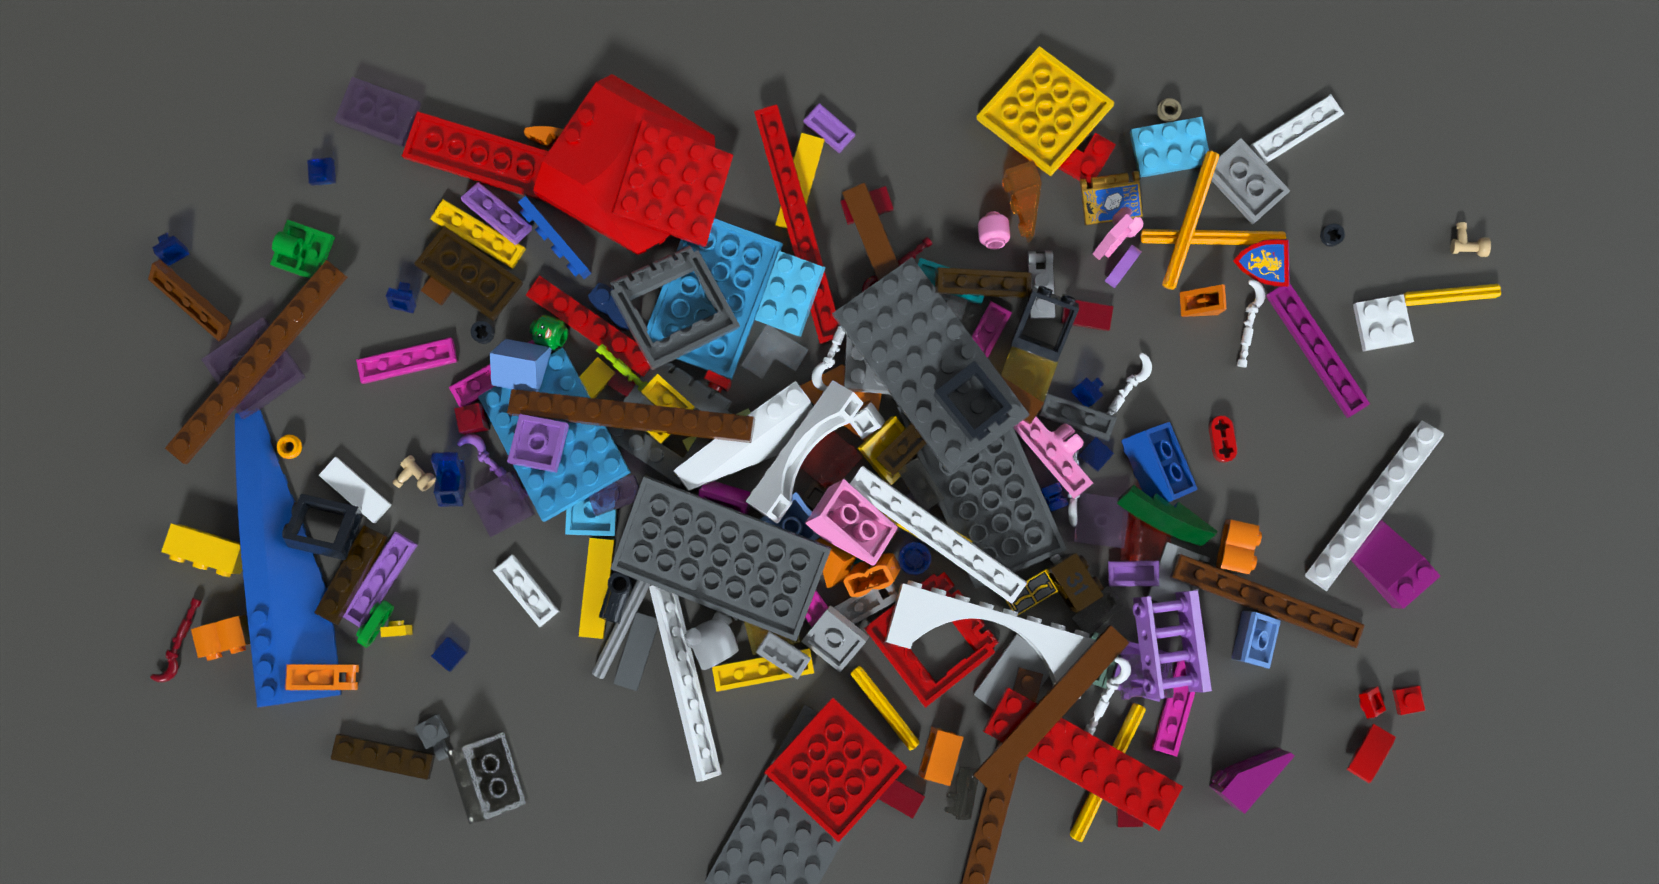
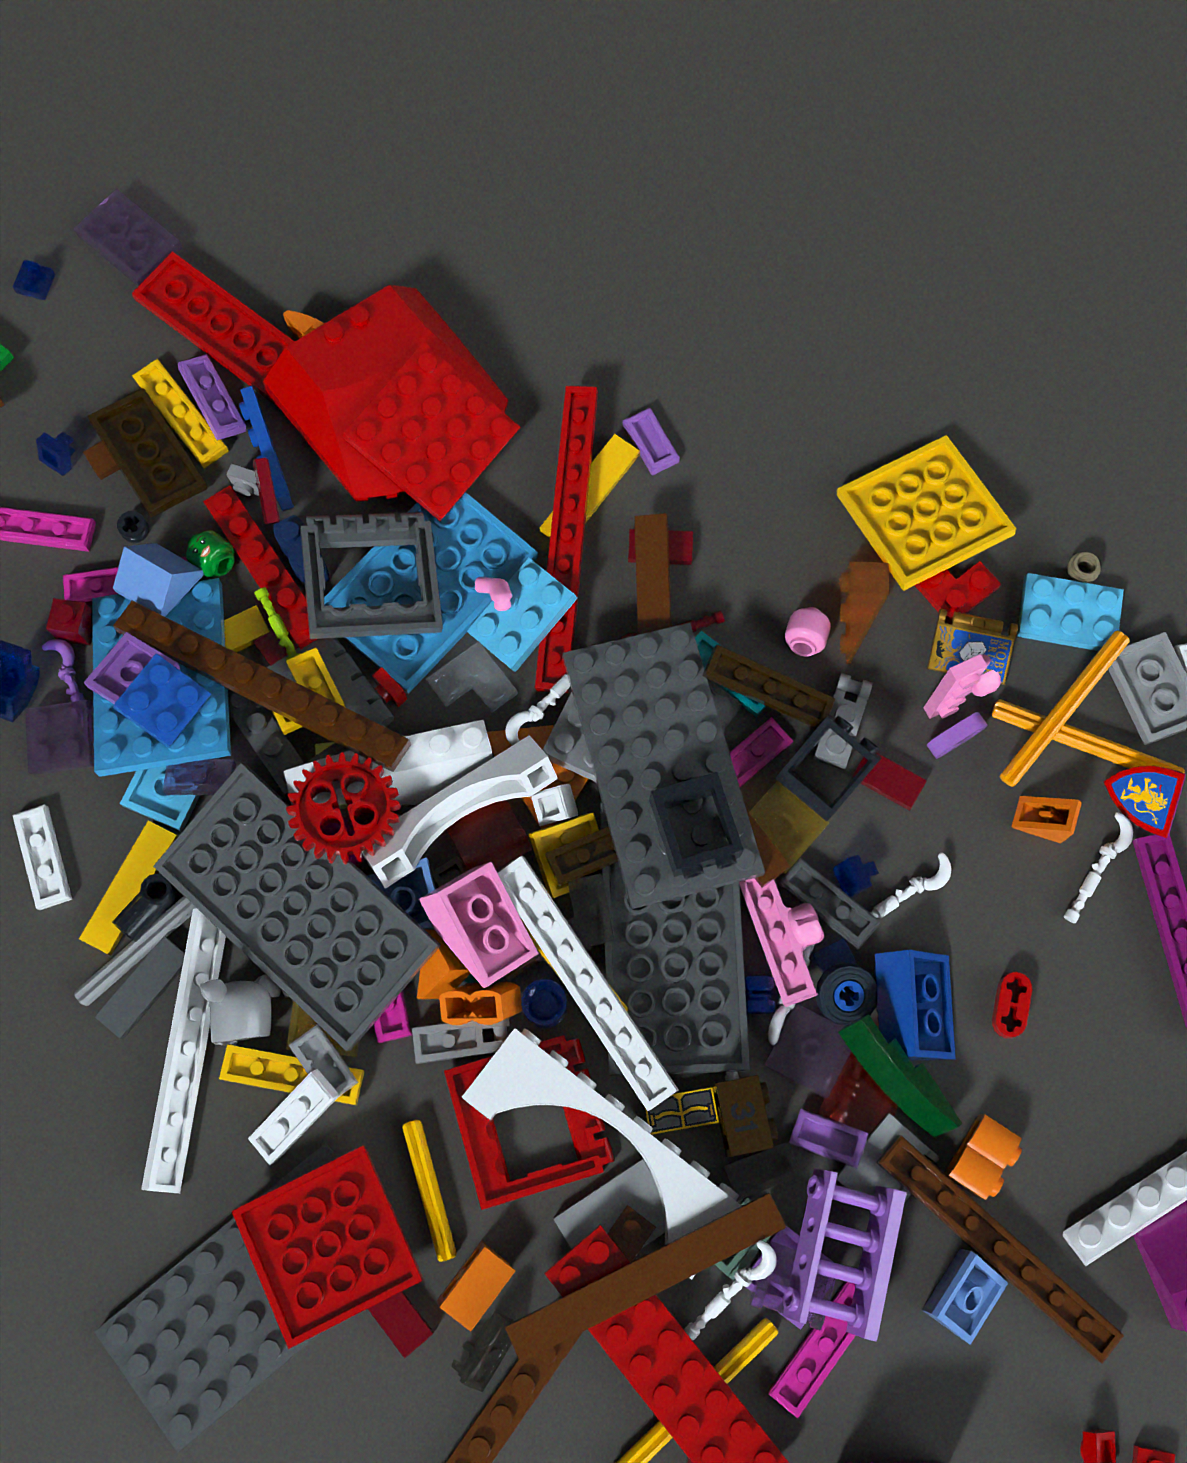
camera: 20 degrees right, 10 degrees down
(550, 268) = (242, 480): none -> light grey plate
(569, 454) = (162, 700): none -> blue plate
(571, 272) = (266, 490): none -> dark red tile
(711, 495) = (314, 817): none -> red gear
(768, 283) = (498, 590): none -> bright pink arm
(778, 696) = (293, 1116): none -> white tile
(835, 638) = (400, 1069): light grey plate -> none
(1100, 470) = (857, 980): none -> black bush

